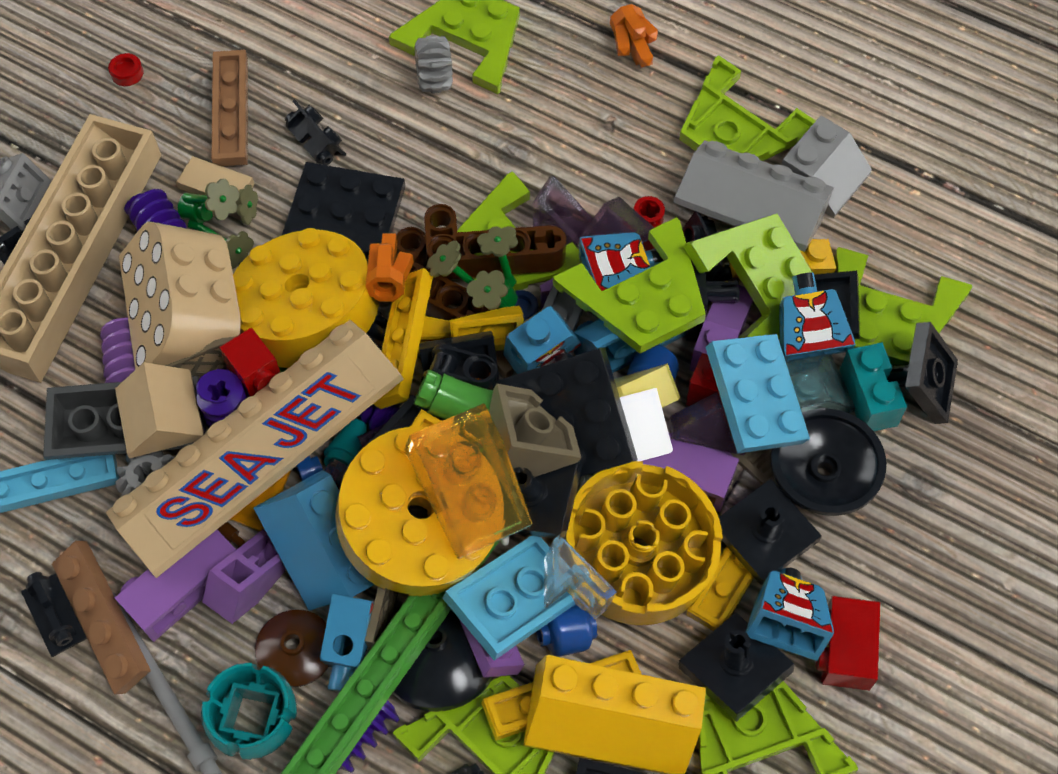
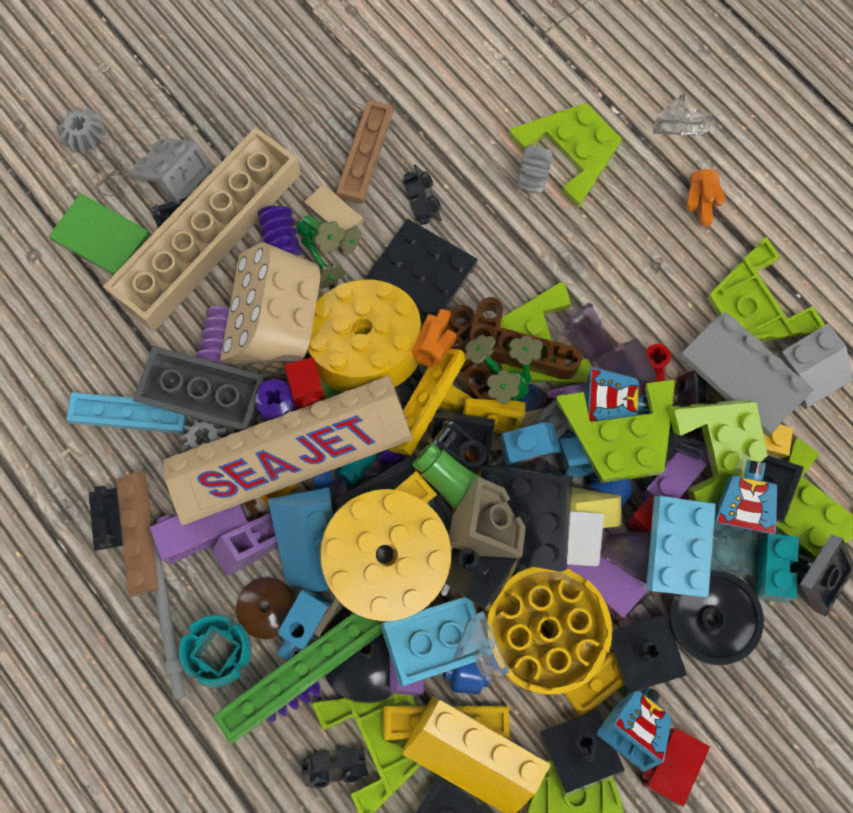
camera: 20 degrees right, 10 degrees up
(126, 69) = (298, 90): red tile -> none
(158, 409) = (226, 394): tan slope -> none
(469, 480) = (427, 553): clear yellow slope -> none

